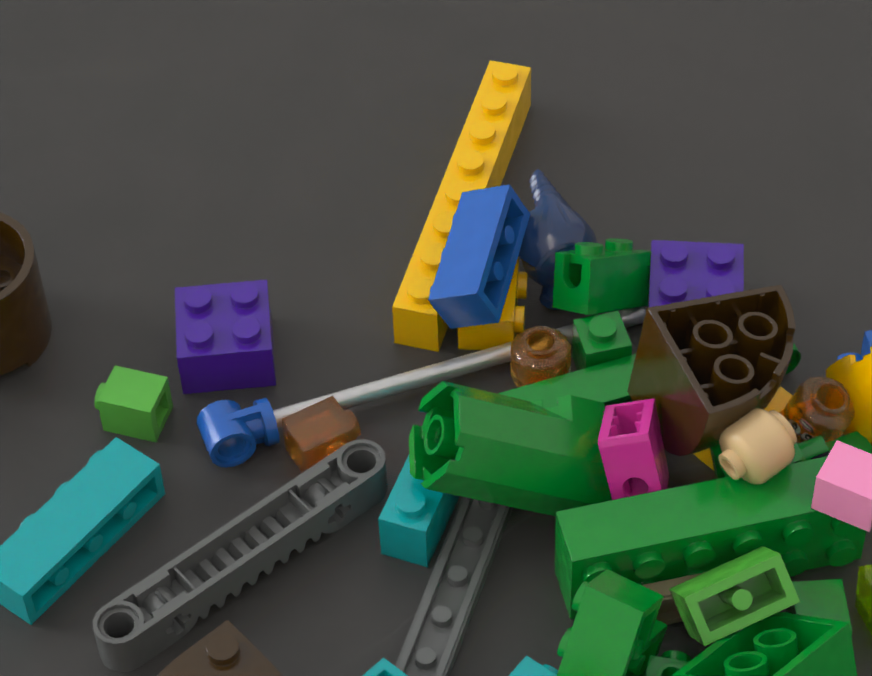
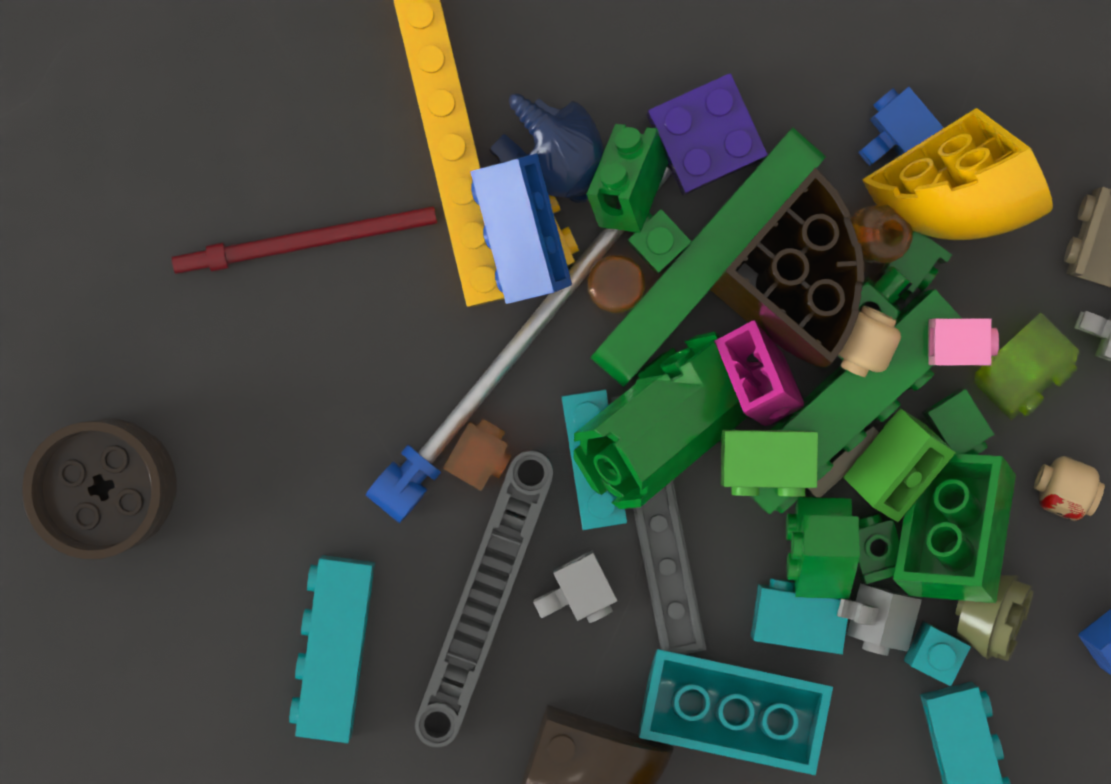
camera: 35 degrees left, 40 degrees up
(134, 403) = (299, 503): bright green brick -> none
(208, 213) = (219, 256): none -> dark red bar
(224, 336) = (332, 395): dark purple brick -> none
(344, 587) = (582, 587): none -> light grey brick
(599, 497) = (769, 460): none -> bright green brick

